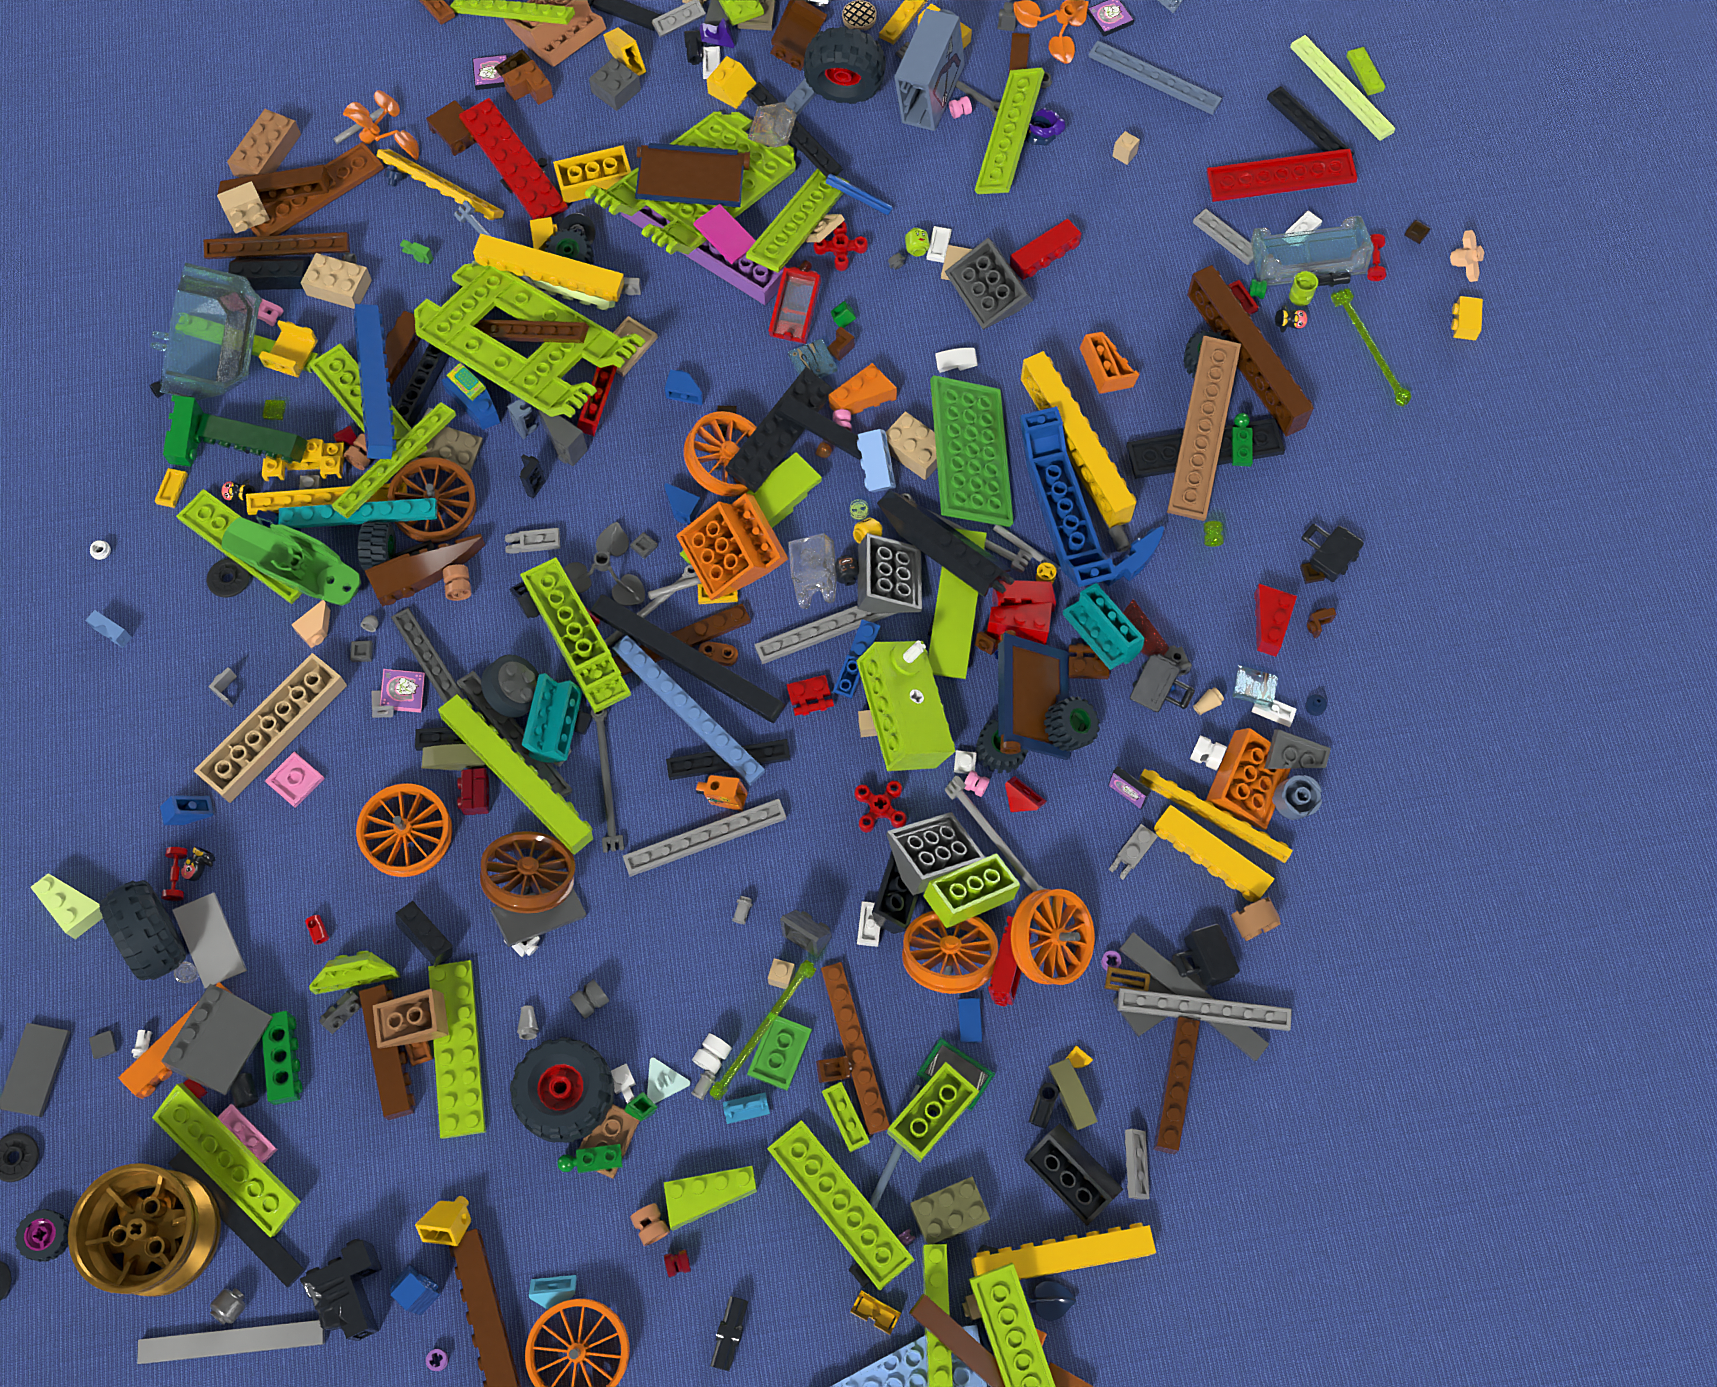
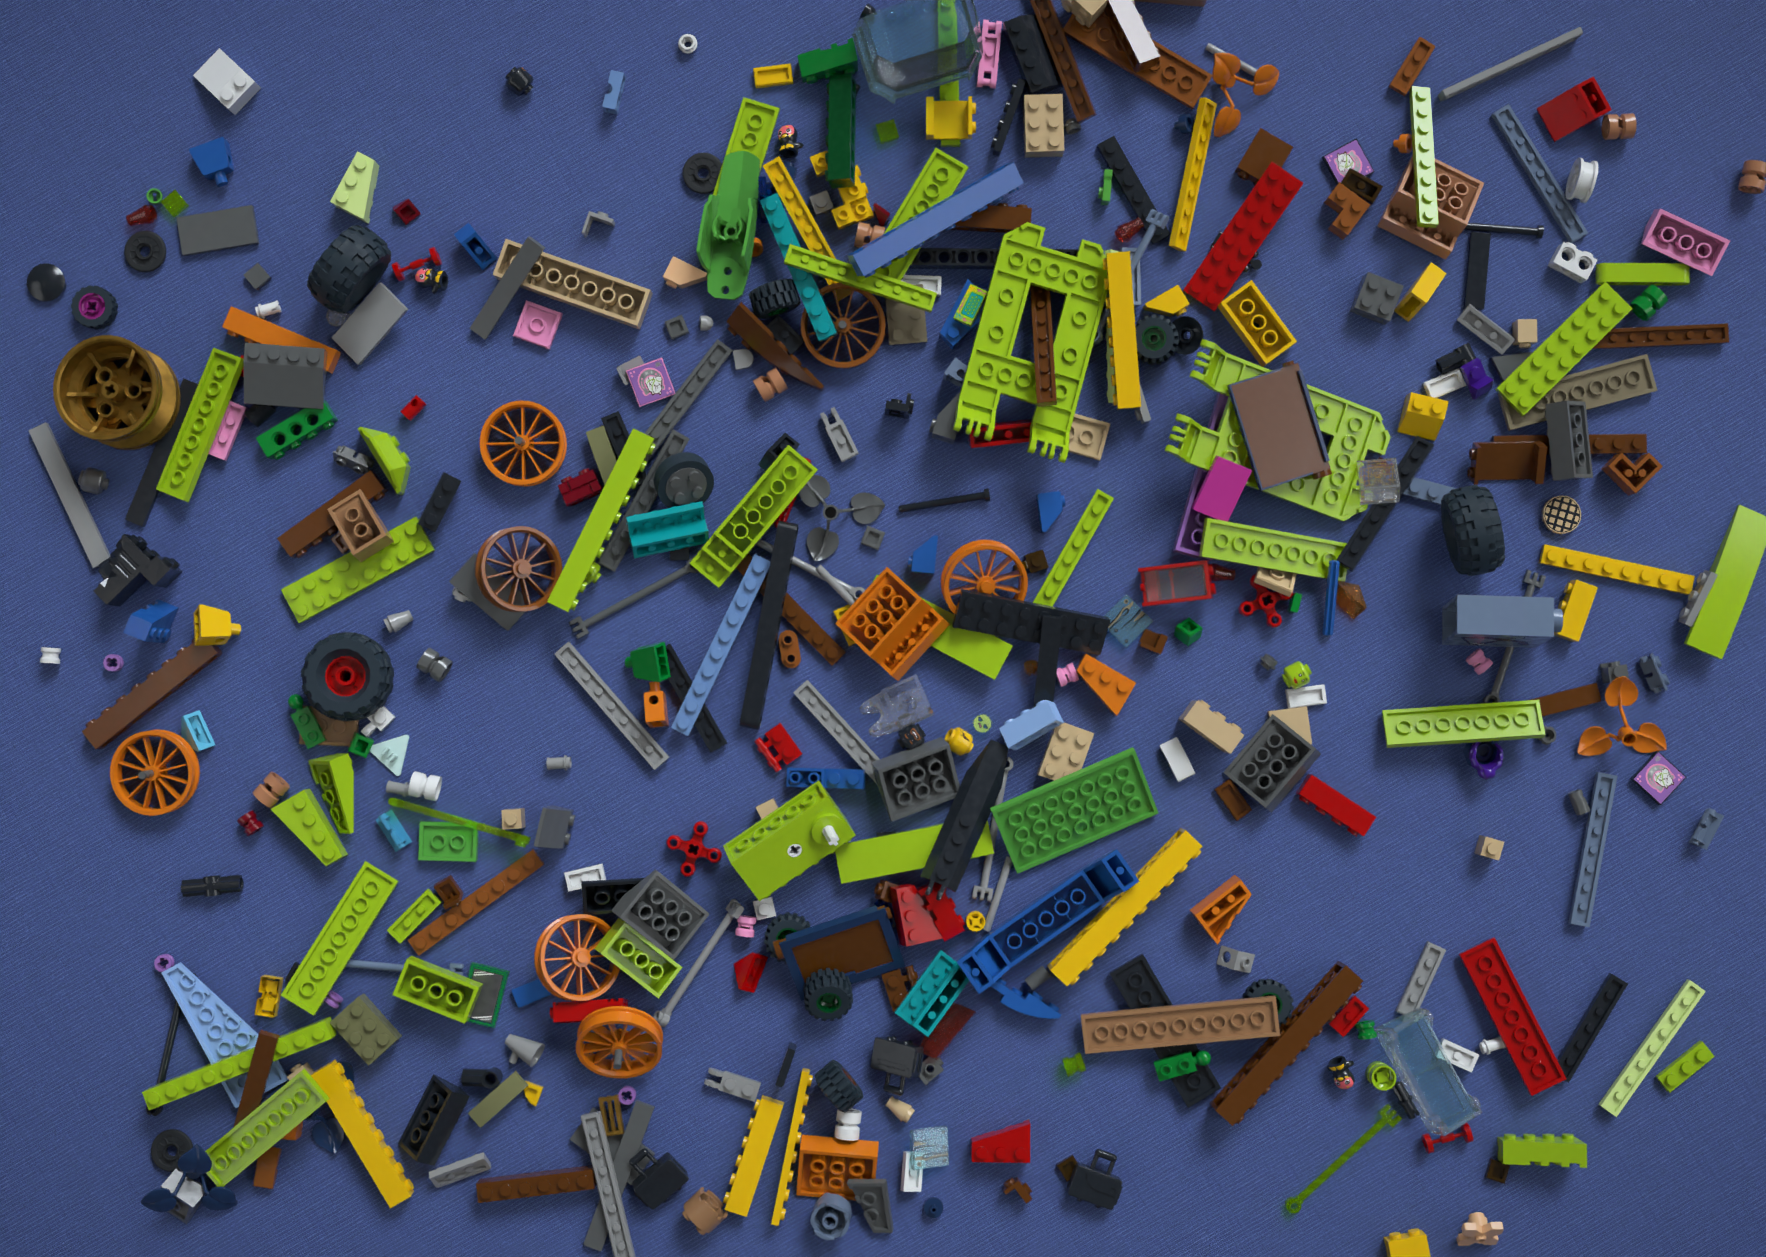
camera: 70 degrees right, 20 degrees up
(49, 711) = (519, 81): none -> black head
(116, 867) = (406, 211): none -> dark red slope
(242, 785) = (507, 287): none -> dark grey tile
(318, 310) = (1009, 109): none -> black plate
(420, 602) = (743, 359): none -> light grey tile
(426, 234) = (1130, 184): none -> black plate
(463, 248) = (1128, 230): none -> clear red cone
(494, 26) = (1404, 143): none -> orange tile
(646, 436) = (946, 501): none -> black bar
(672, 1151) = (337, 782): none -> lime wedge
(675, 782) = (649, 662): none -> green torso
(726, 378) = (1074, 548): none -> lime plate
(853, 224) = (1294, 603): none -> green tile
(869, 183) = (1350, 599): none -> clear orange slope
(936, 318) = (1212, 726): none -> tan brick
(1010, 328) = (1233, 799): none -> reddish brown tile
(1026, 1049) = (526, 1049): none -> light grey piece
(1110, 75) = (1578, 802): none -> dark grey piece
(1161, 367) = (1239, 960): none -> light grey bracket
(1167, 743) = (838, 1086): none -> black wheel
(1302, 200) = (1491, 1045): none -> white pin
(1408, 187) = (1542, 1150): none -> lime wedge

